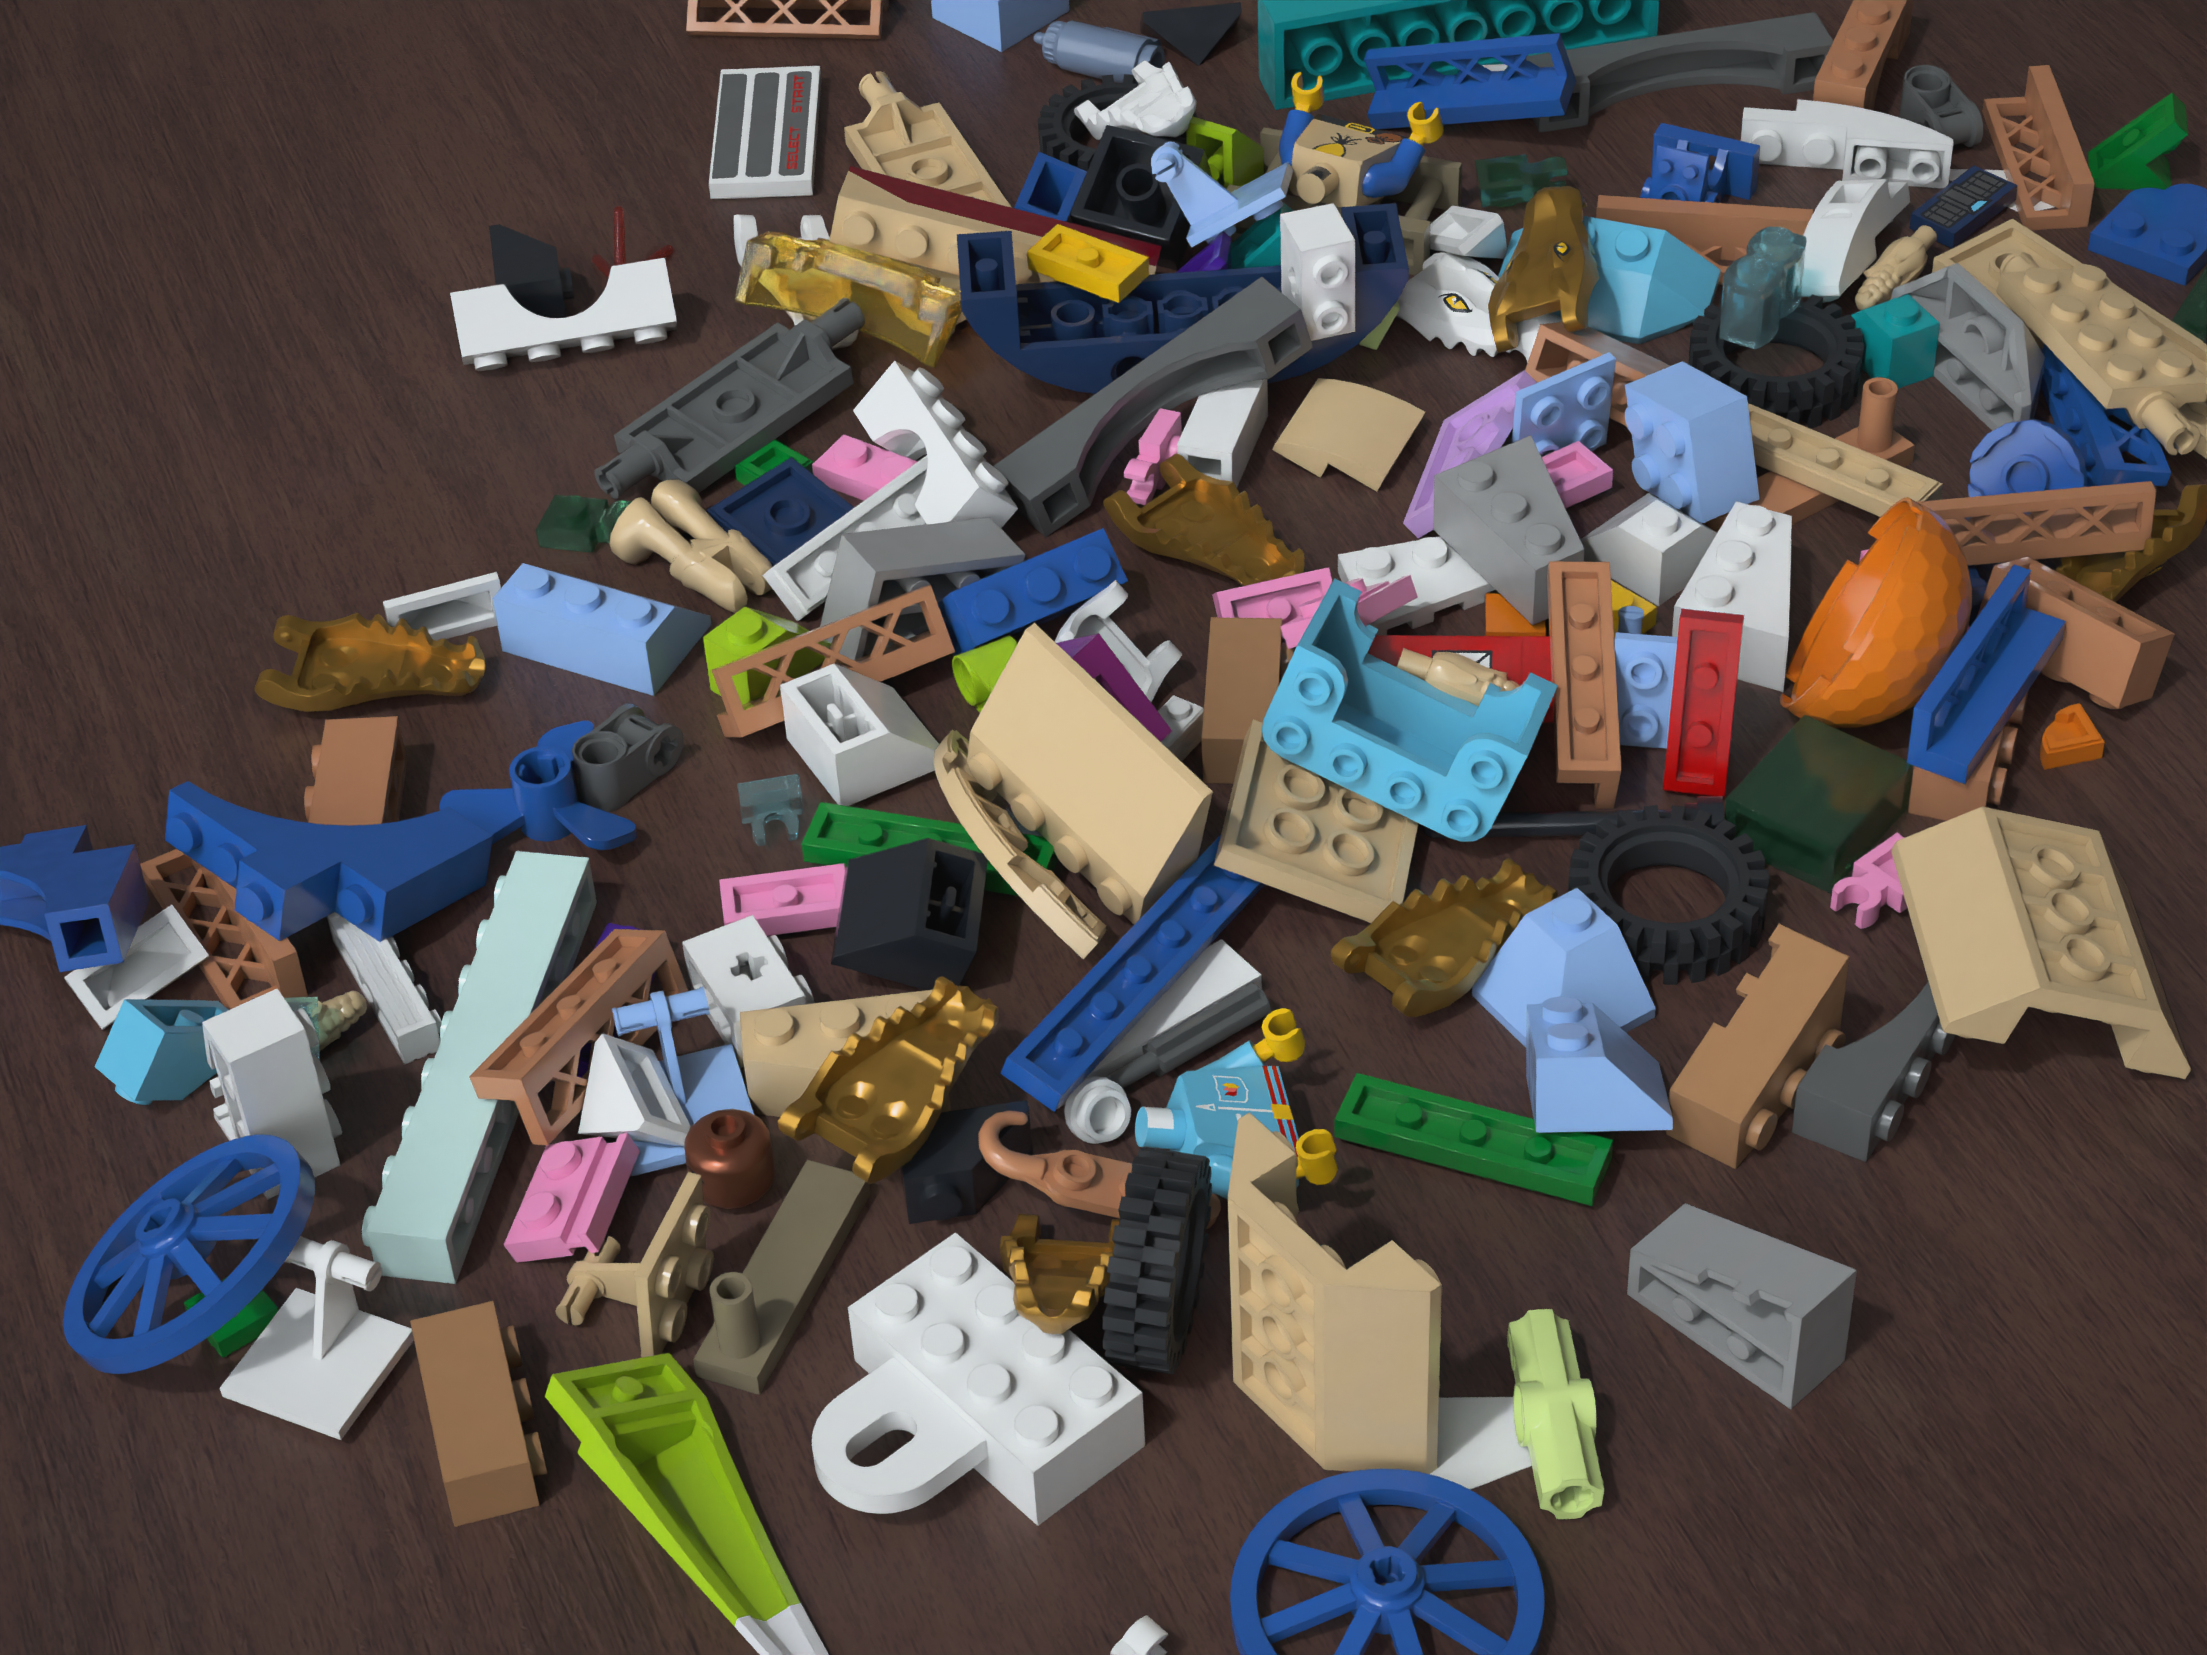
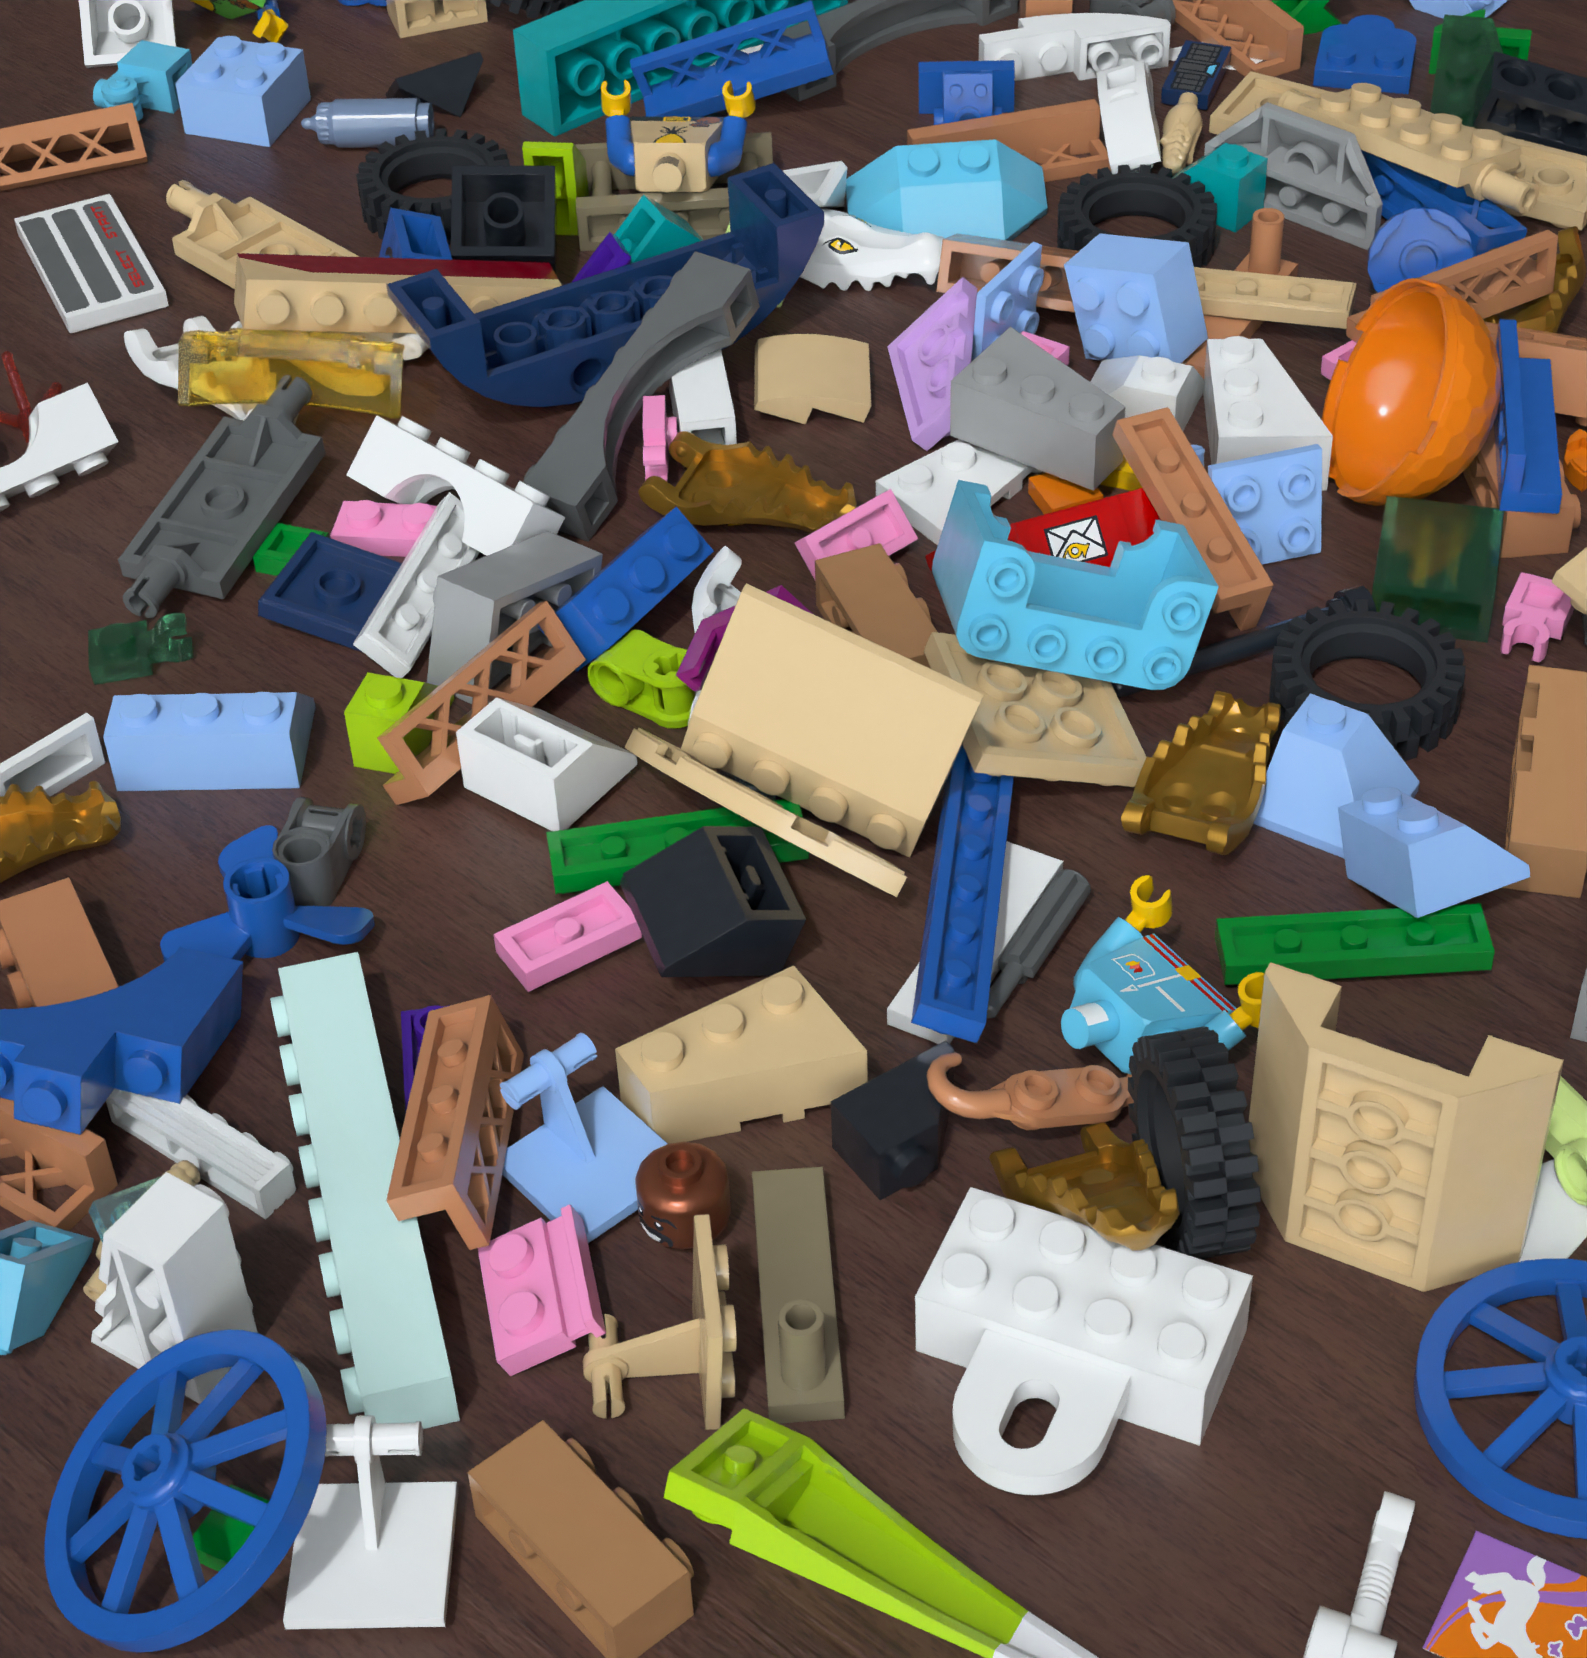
camera: 25 degrees left, 0 degrees up
(630, 1095) = (543, 1171): white slope -> none
(714, 562) = (296, 647): tan piece -> none
(741, 974) = (577, 1000): white brick -> none
(771, 800) = (496, 845): clear light blue tile -> none
(891, 1085) = (825, 1063): pearl gold animal -> none
(1088, 263) = (511, 285): yellow plate -> none
(1097, 1110) = (1006, 1033): white plate -> none
(1154, 107) = (466, 139): white animal -> none
(1210, 205) = (588, 217): light blue plate -> none
(1319, 269) = (743, 226): white brick -> none
(1373, 604) = (923, 524): bright pink plate -> none
(1454, 674) = (1077, 544): tan piece -> none
(1513, 179) = (811, 141): clear green plate -> none
(1548, 268) = (915, 192): pearl gold animal -> none
(1703, 702) = (1310, 505): red plate -> none
(1762, 287) = (1110, 163): clear light blue brick -> none

